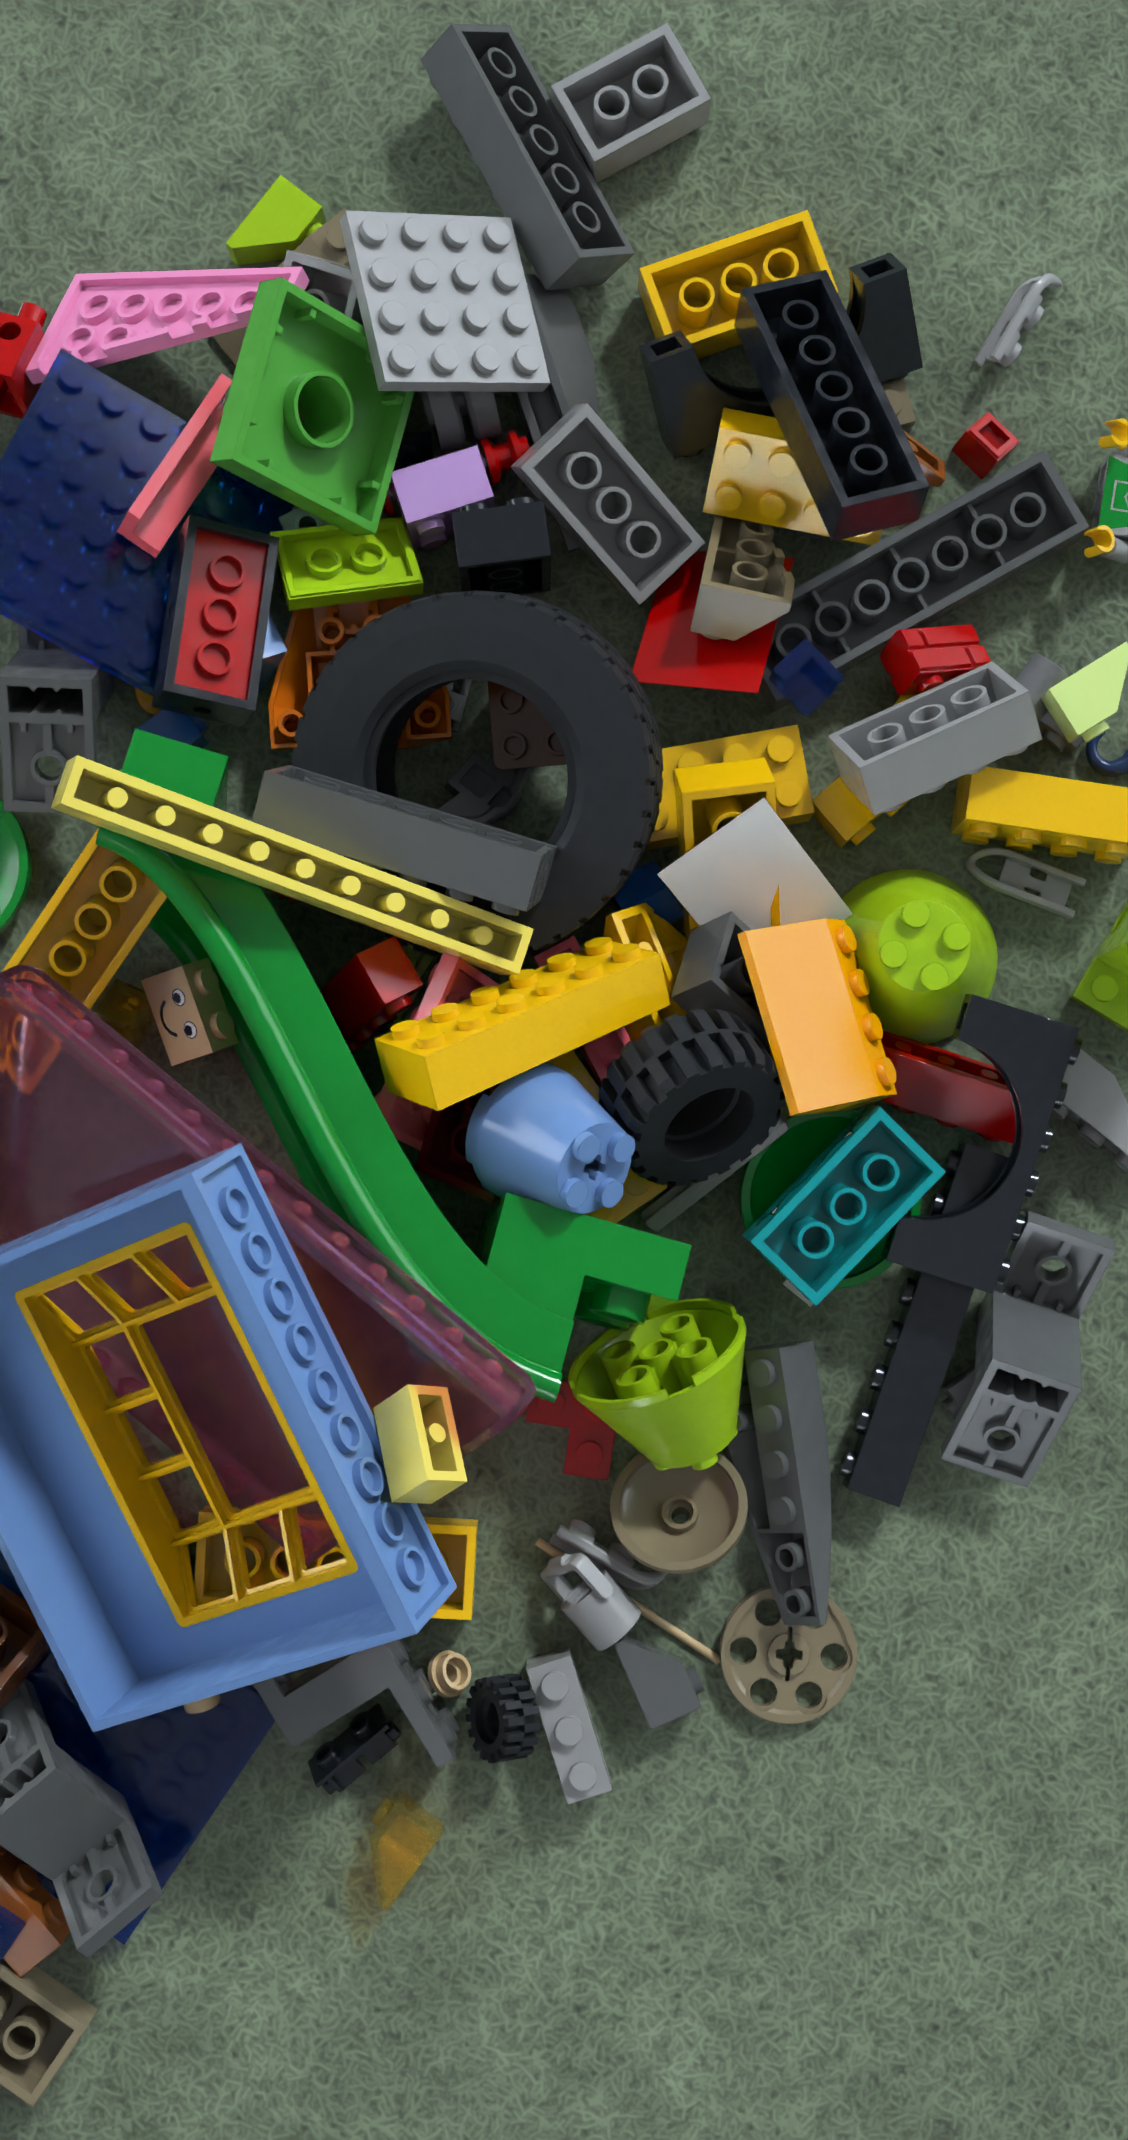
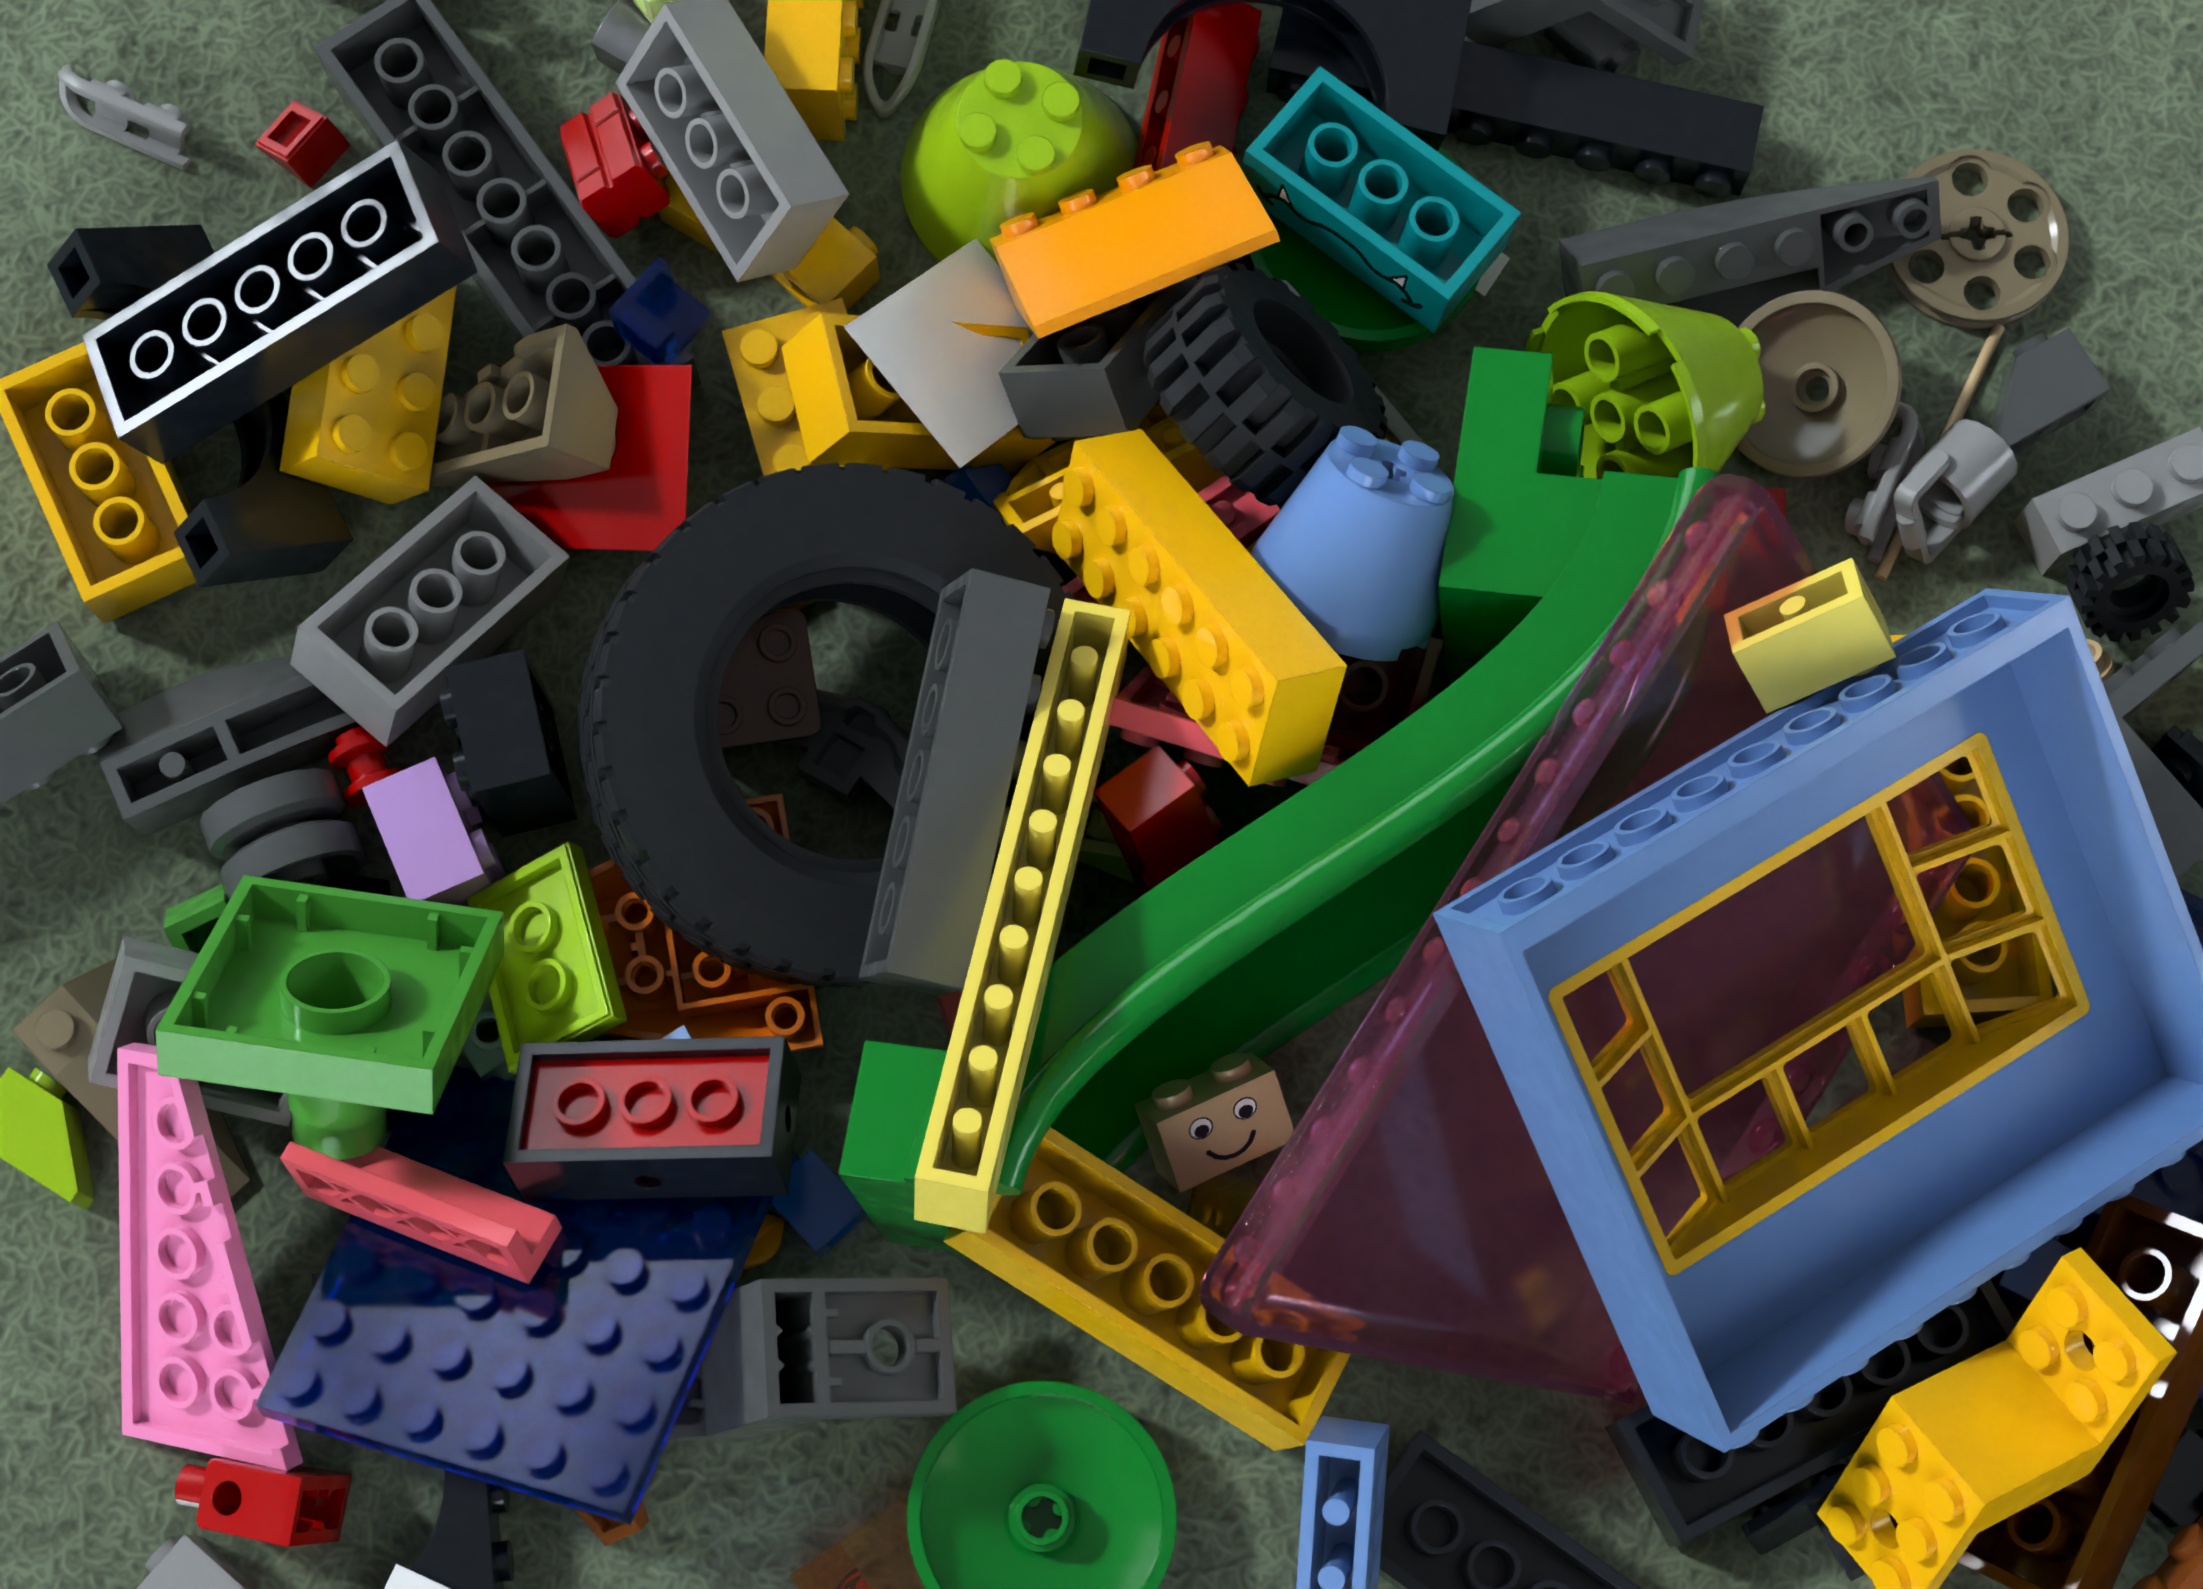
camera: 90 degrees left, 10 degrees down
(444, 302) = (158, 846): light grey plate -> none

